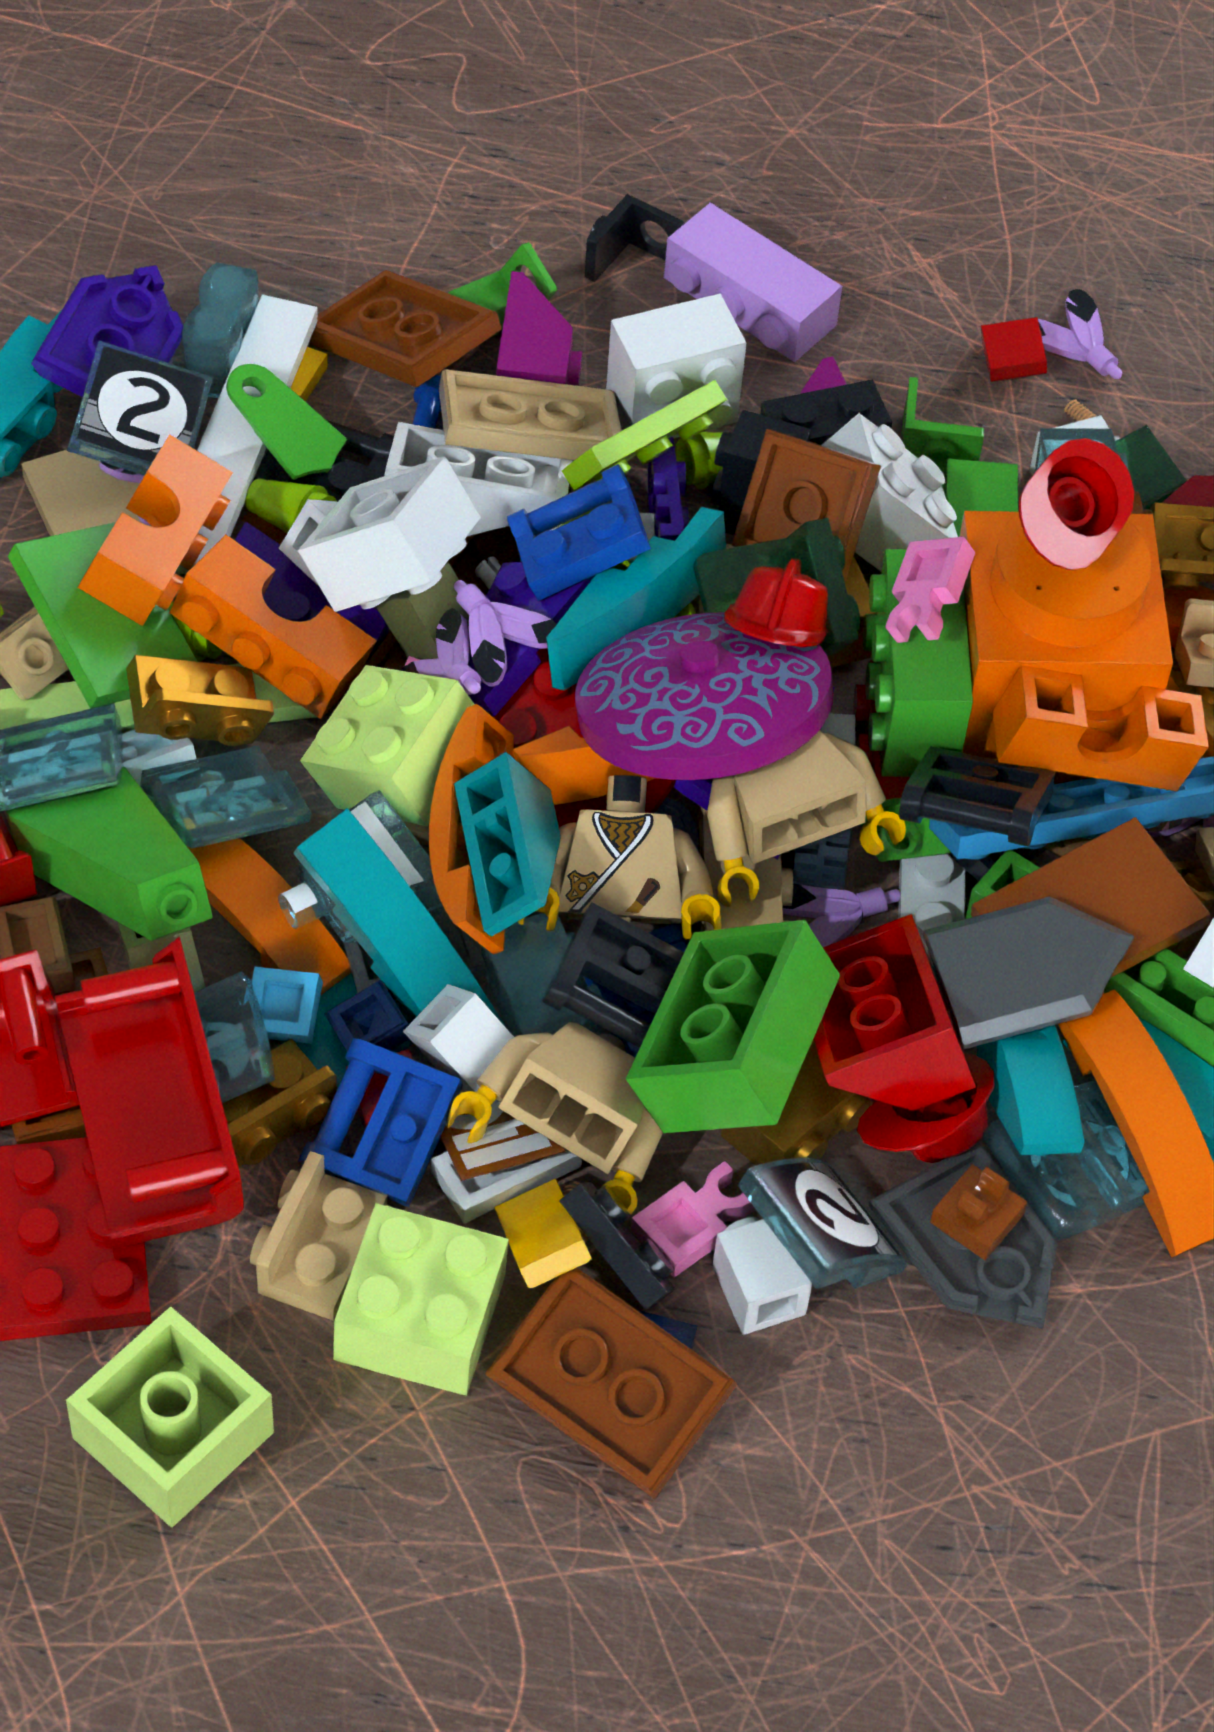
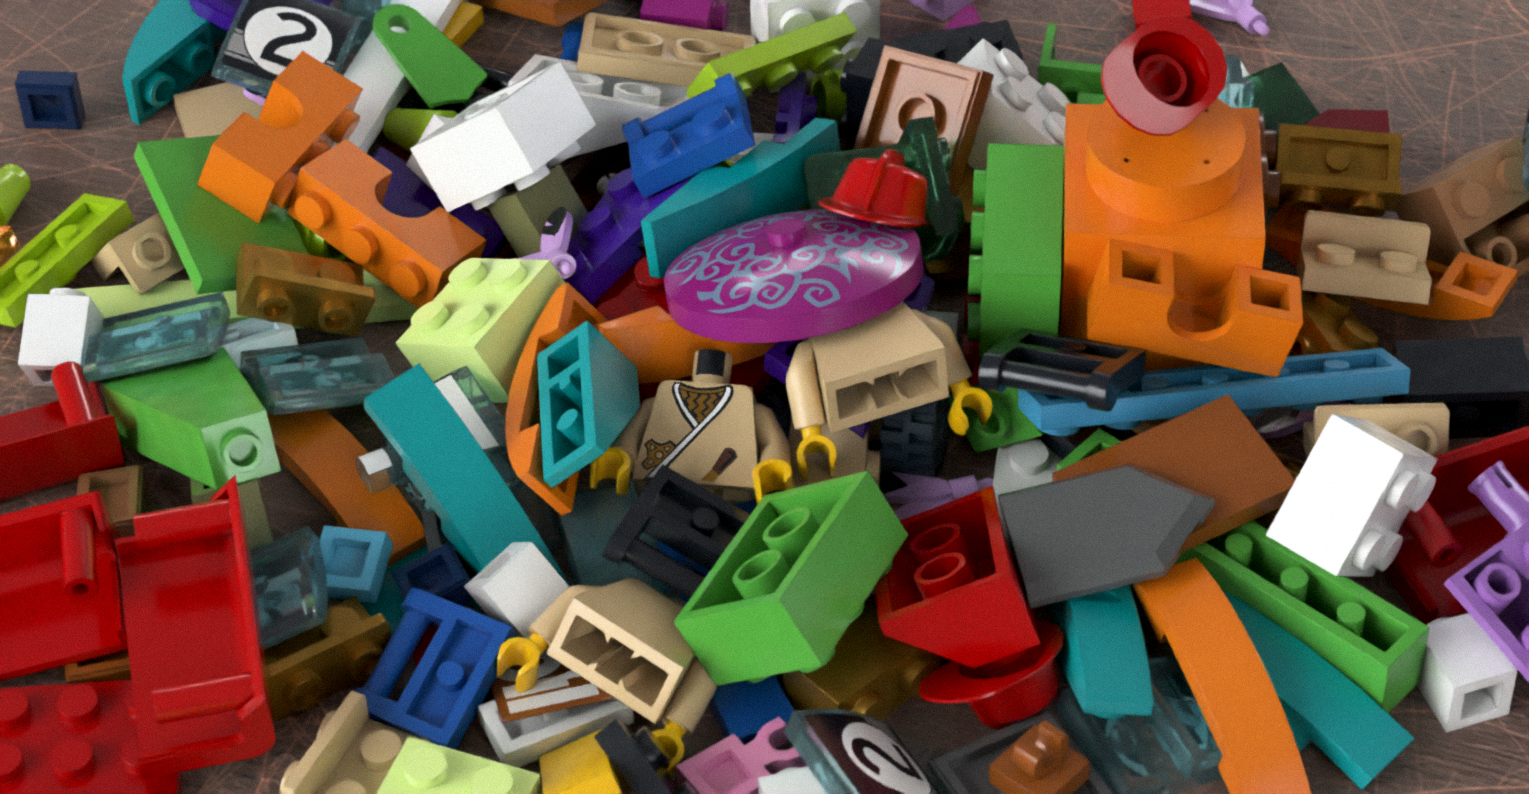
camera: 10 degrees right, 10 degrees down
(491, 624) = (594, 216): lavender piece -> none
(695, 1154) = (745, 707): none -> blue tile
(927, 579) = (1022, 164): bright pink plate -> none

